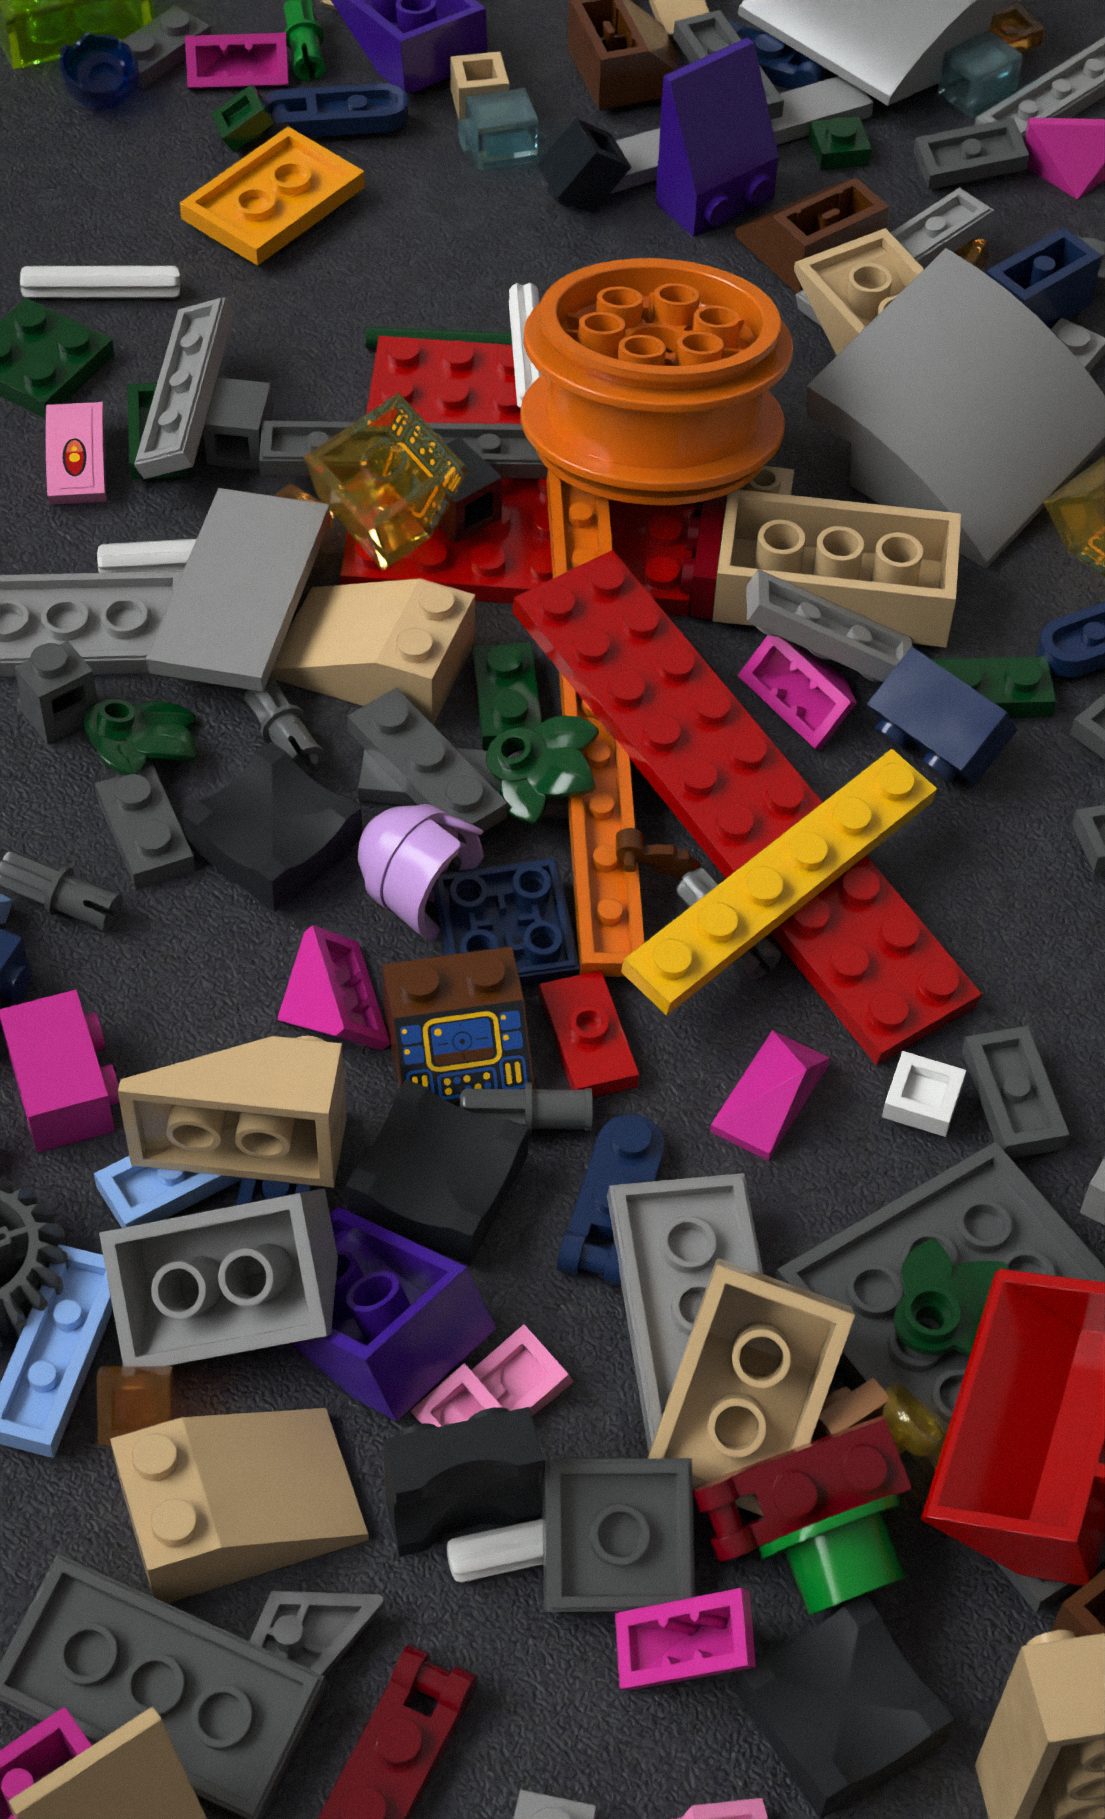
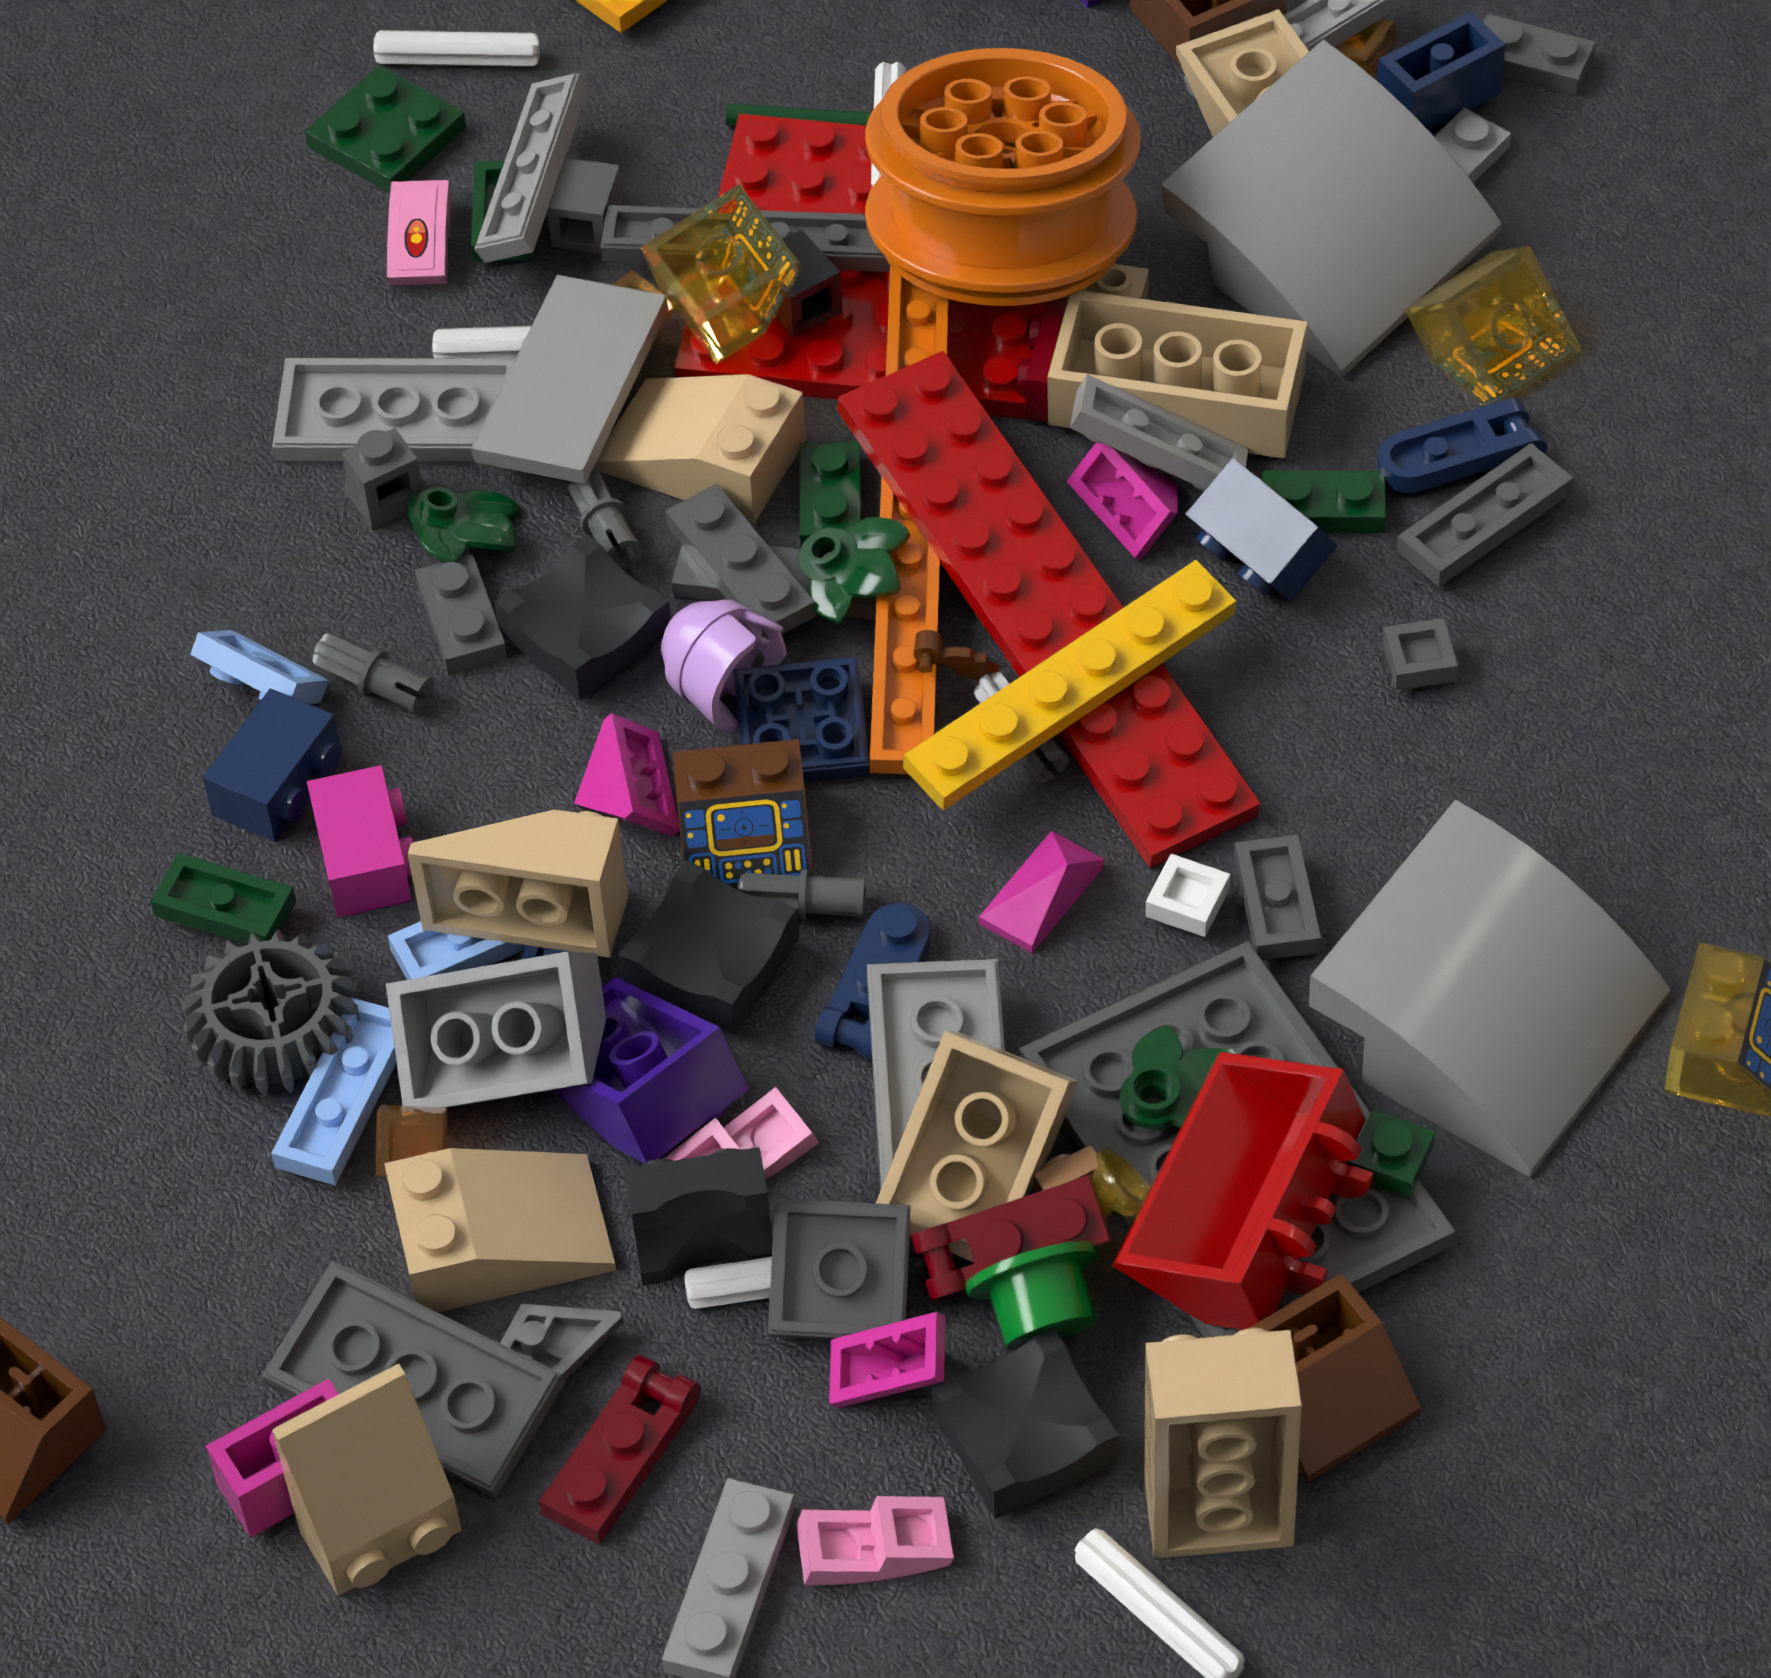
camera: 10 degrees right, 0 degrees up
(588, 1034) = (871, 827): red plate -> none

